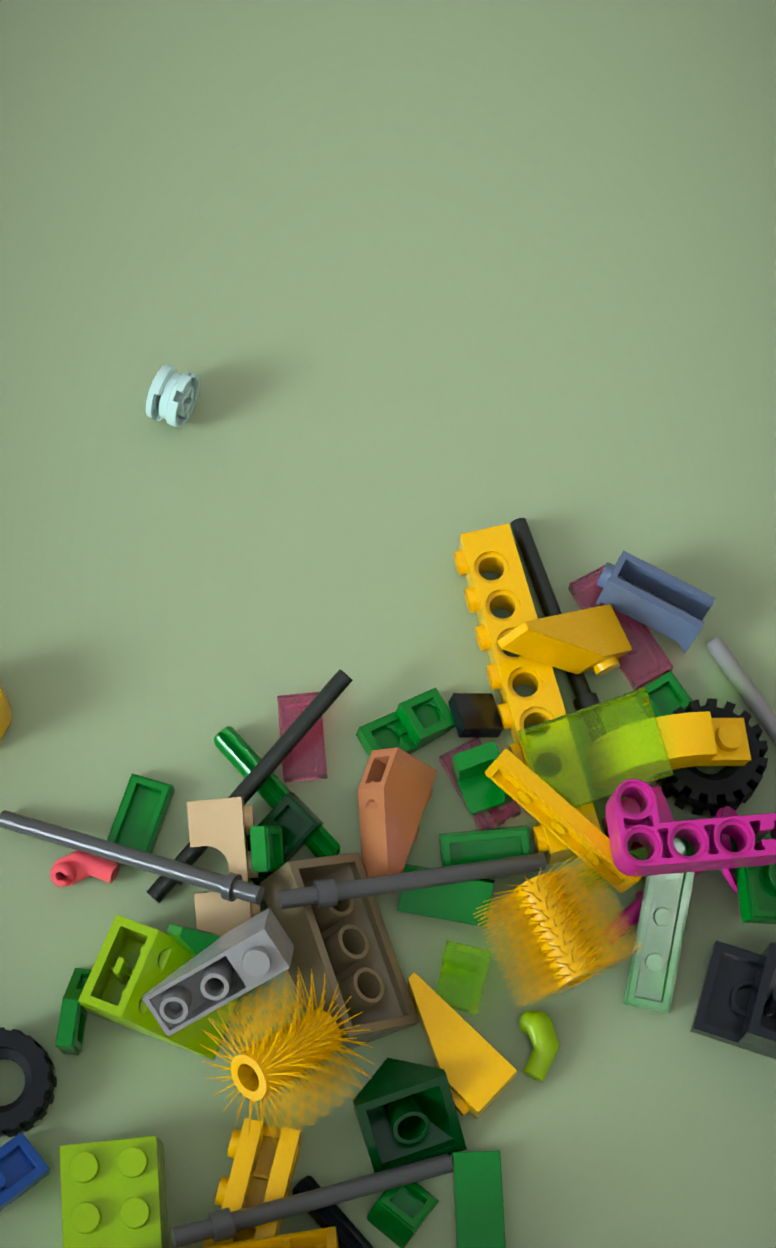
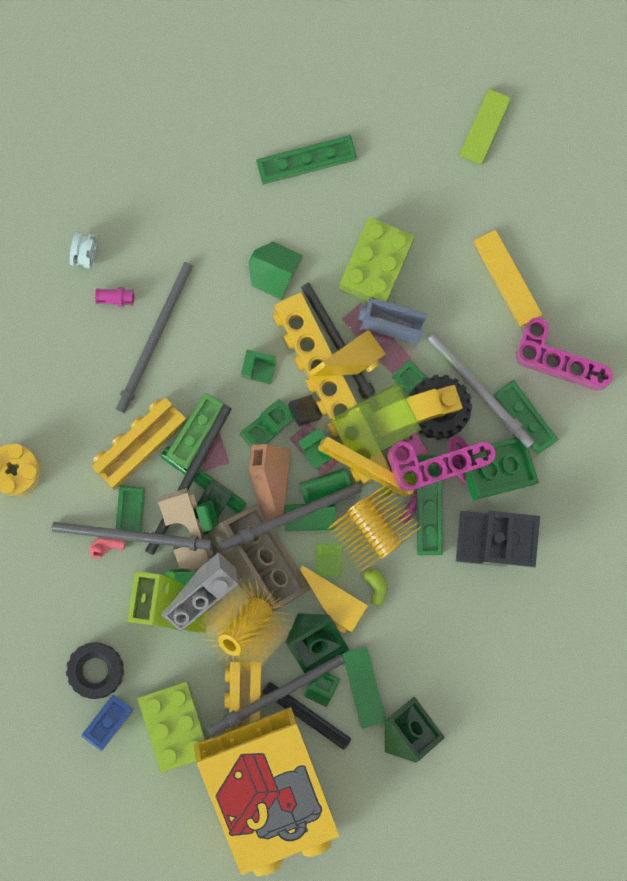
camera: 15 degrees left, 15 degrees up
(72, 1015) = (123, 626): green tile -> none
(182, 710) = (139, 443): none -> yellow brick
(186, 631) = (128, 393): none -> dark grey bar
(209, 478) = (115, 296): none -> dark pink pin
(275, 712) = (194, 431): none -> bright green tile
(412, 629) = (258, 367): none -> green panel
(471, 487) = (273, 268): none -> green slope
(560, 339) = (306, 159): none -> green tile
(644, 503) = (376, 261): none -> lime brick

